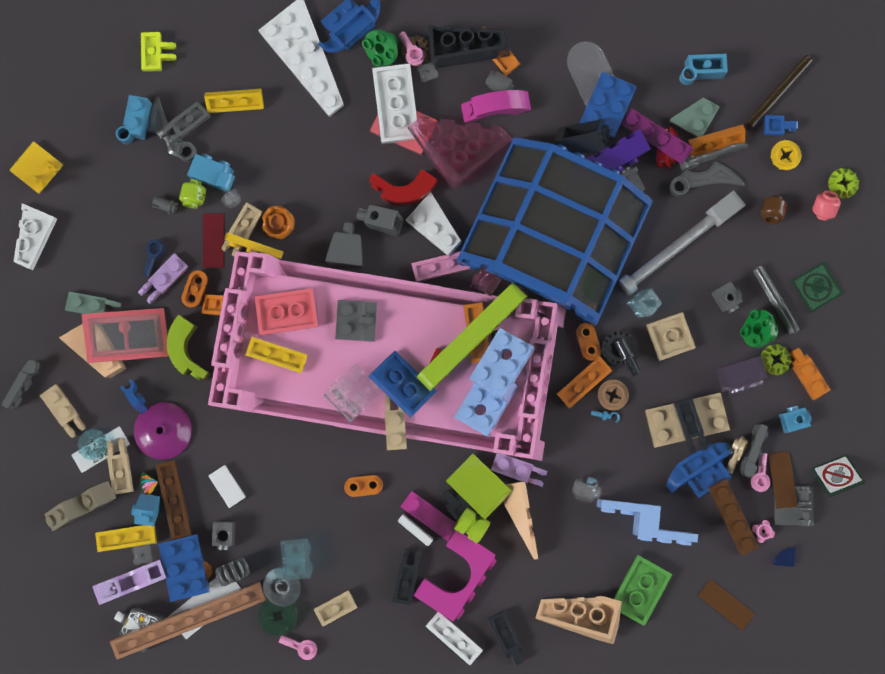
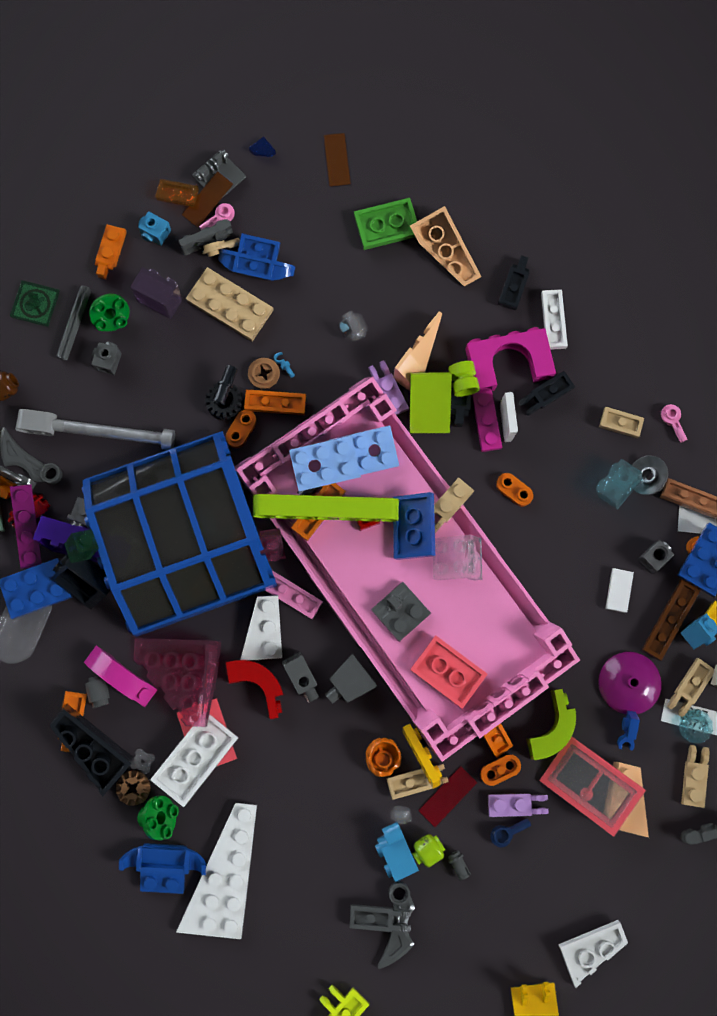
camera: 140 degrees left, 5 degrees down
(88, 304) = (596, 843): sand green hinge -> none
(135, 119) = (415, 964): dark azure hinge -> none
(148, 484) = (679, 652): tile -> none
(232, 571) = (676, 520): dark grey gear -> none
(234, 100) = (319, 897): yellow plate -> none
(276, 355) = (489, 645): yellow plate -> none
(279, 627) = (680, 453): clear green plate -> none
(415, 55) = (138, 782): bright pink plate -> none
(601, 152) = (81, 546): none -> clear green brick
(644, 303) = (170, 412): clear light blue brick -> none
(647, 522) = (334, 260): light blue bracket -> none
(670, 336) = (177, 372): tan plate -> none
(690, 423) = (231, 296): black hinge -> none
(733, 516) = (269, 207): reddish brown plate -> none
(767, 359) = (113, 288): lime gear -> none
(769, 533) = (259, 174): bright pink plate -> none
(807, 462) = (177, 192): none -> clear orange plate
(838, 475) = (166, 161): piece -> none

